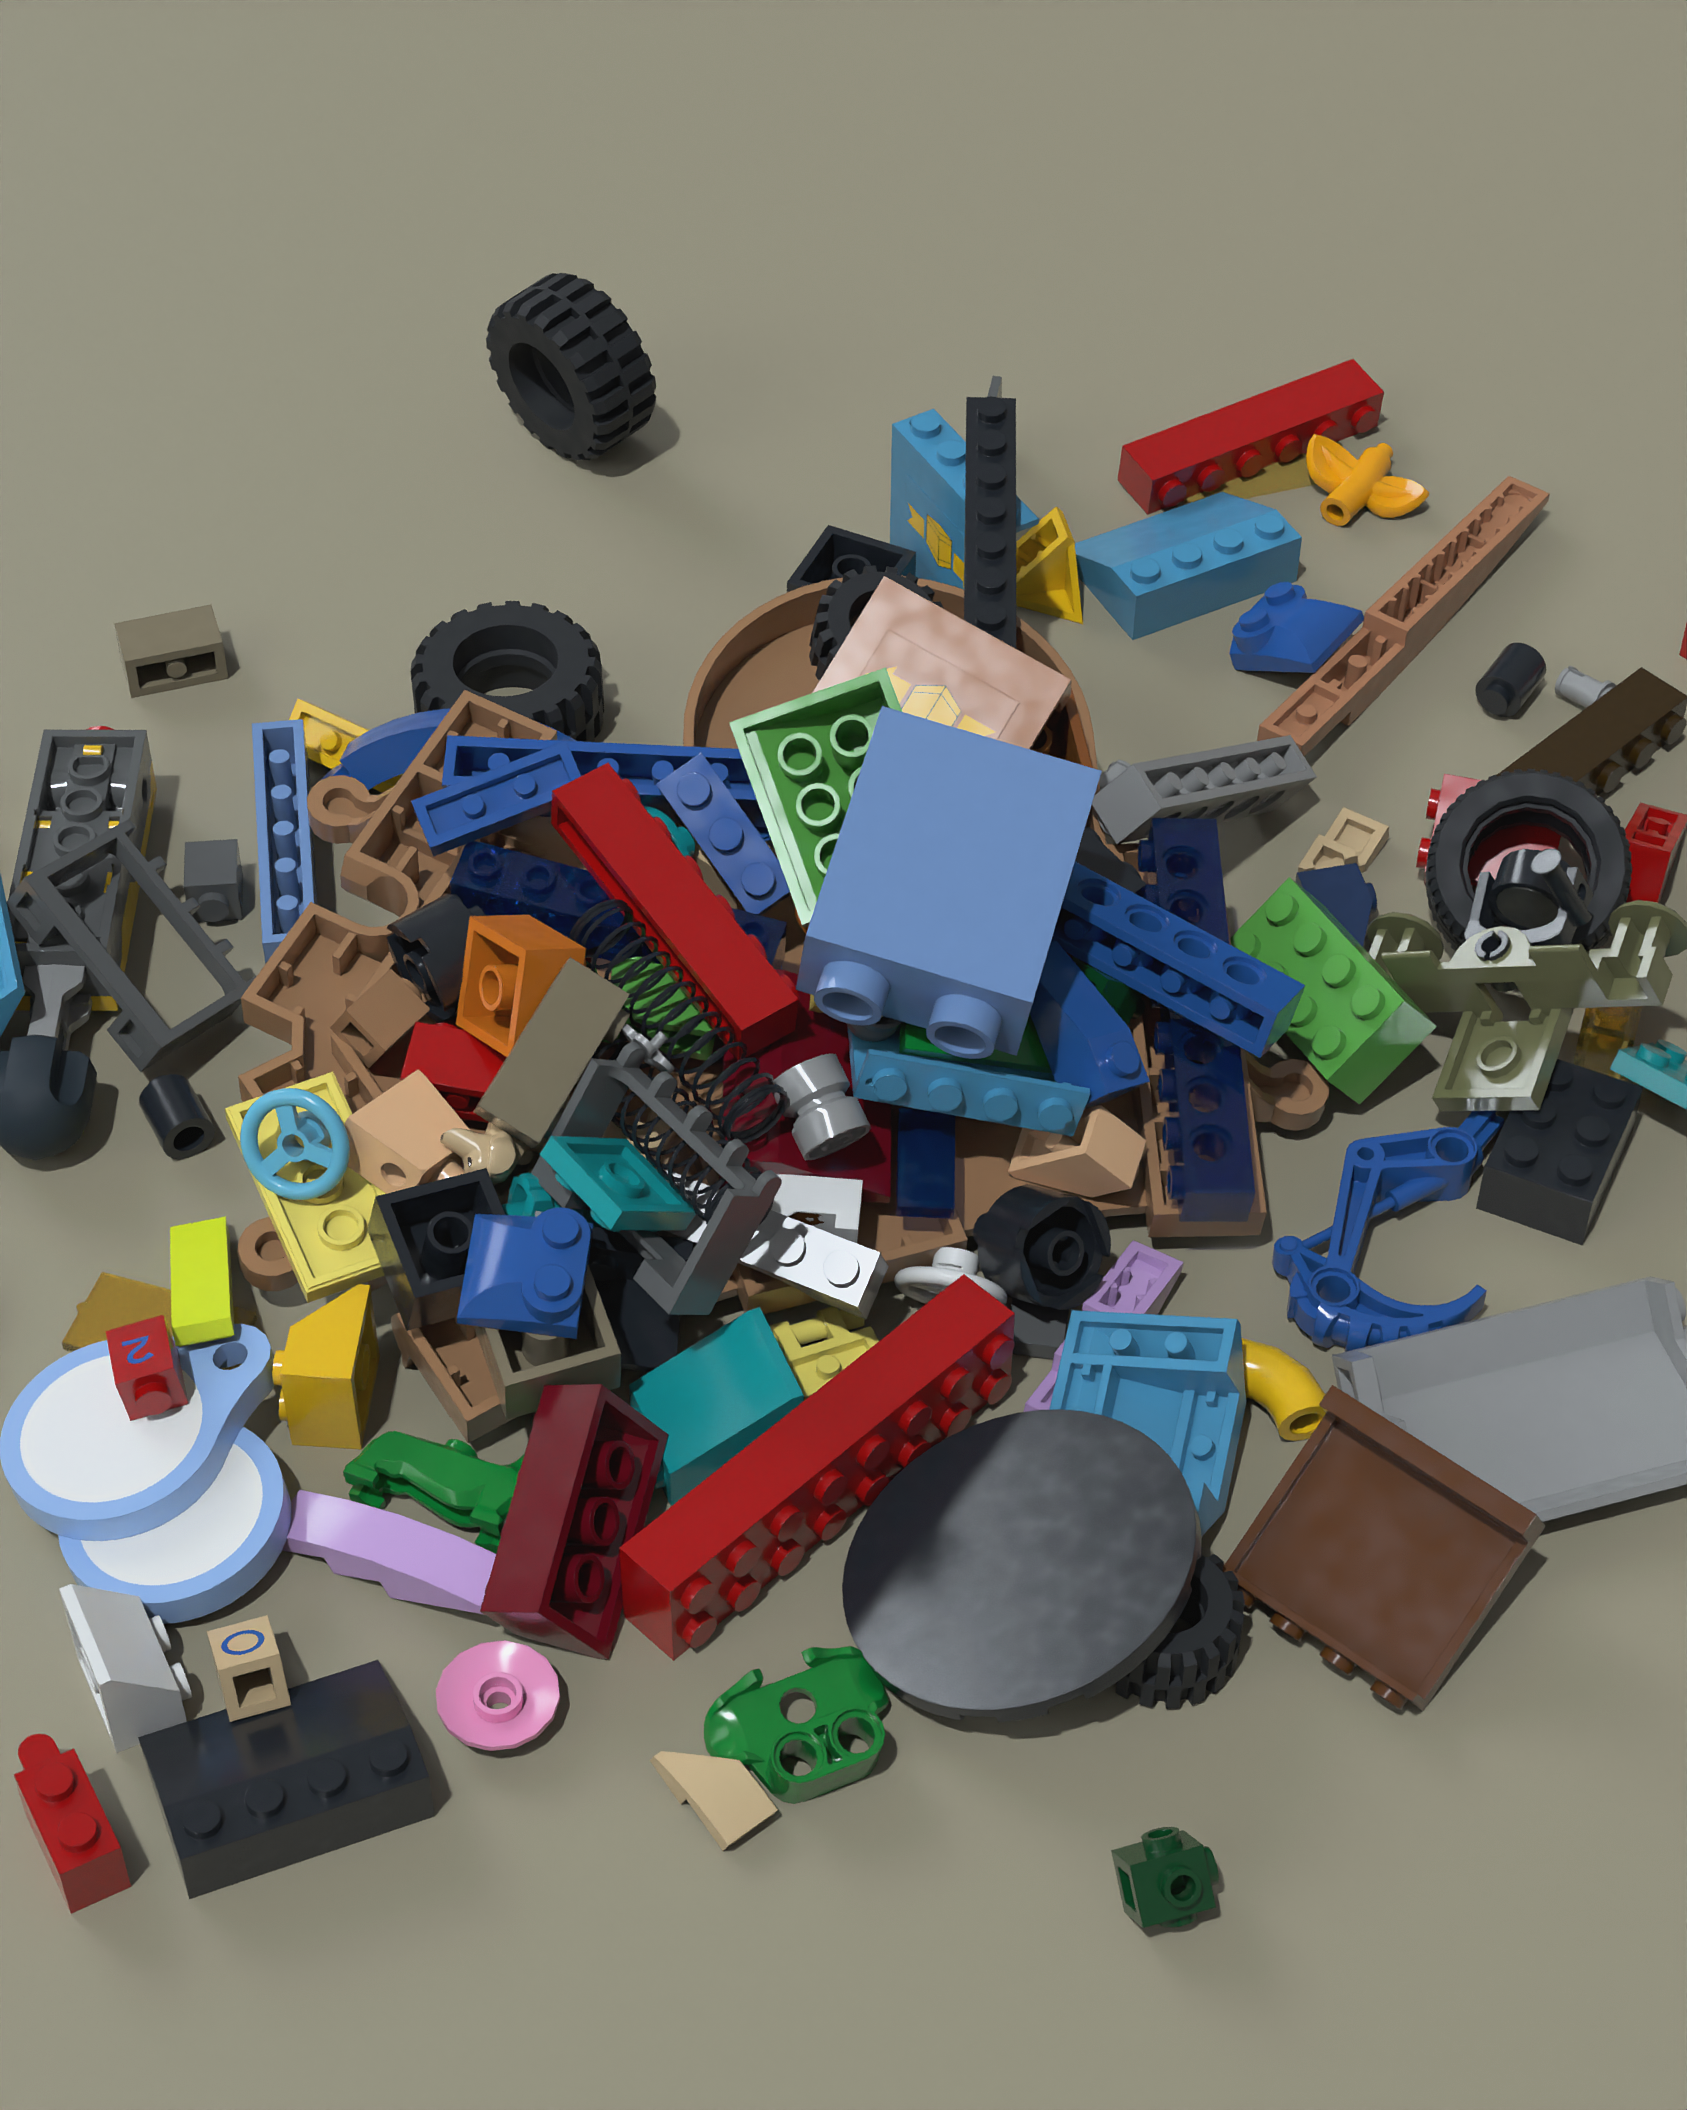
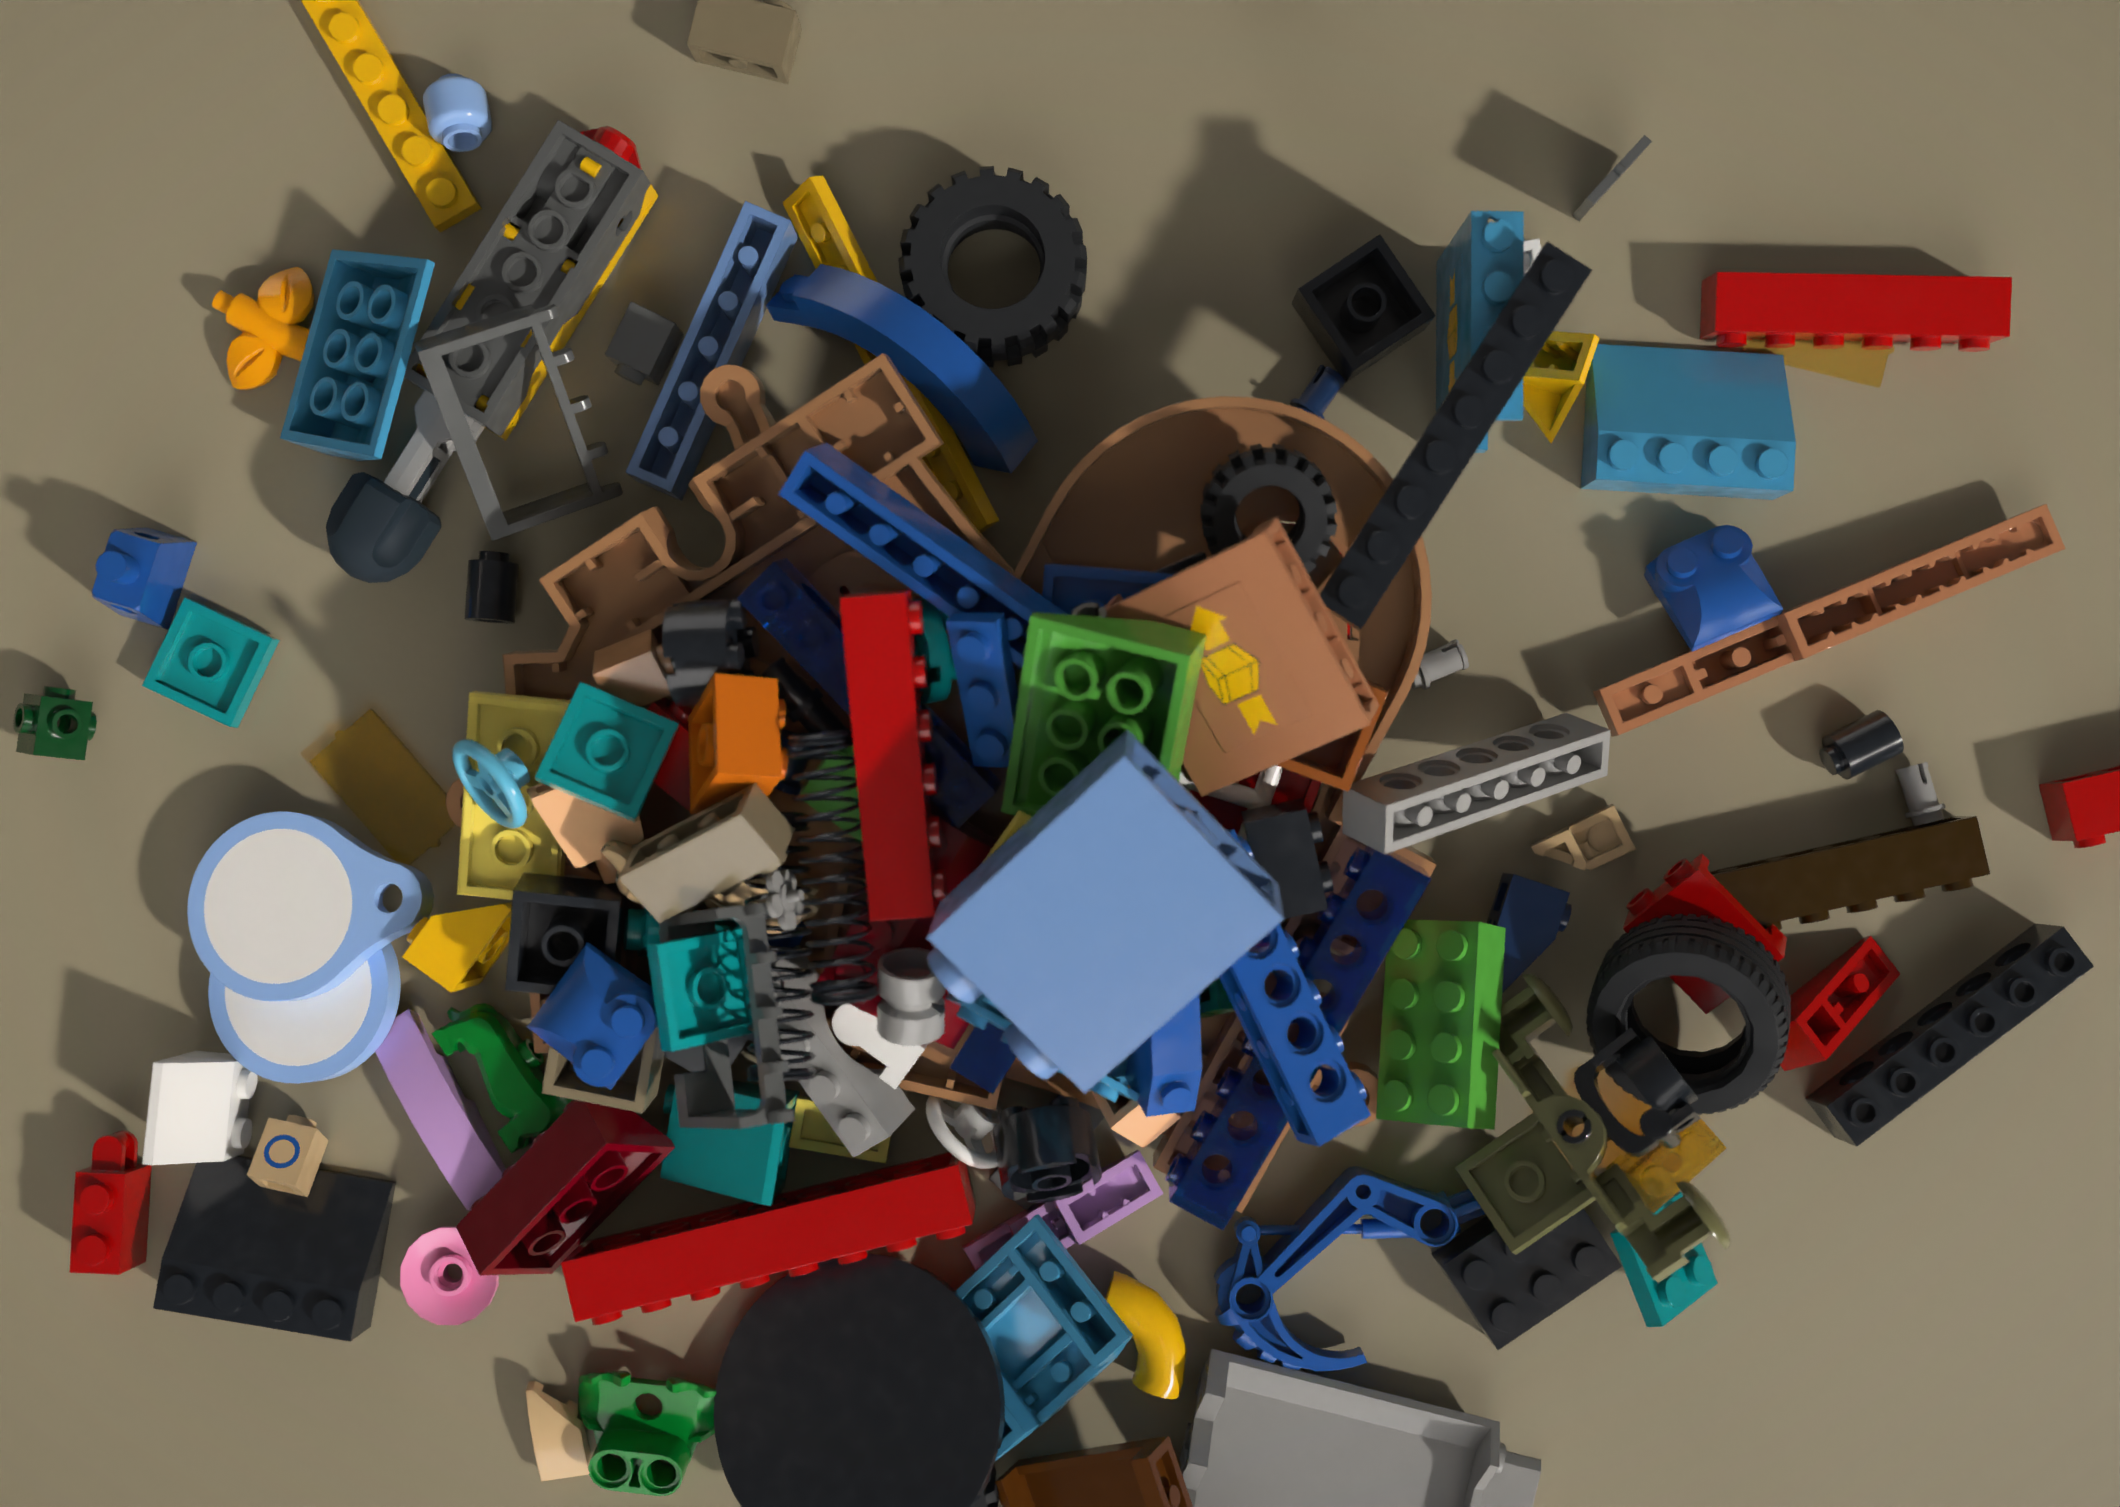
camera: 30 degrees right, 40 degrees up
(146, 1367) = (311, 889): red brick -> none
(201, 1282) = (410, 798): neon yellow tile -> none
(400, 1053) = (607, 752): none -> teal plate
(494, 798) = (811, 550): blue plate -> none
(1359, 482) = (1913, 421): light orange plant -> none

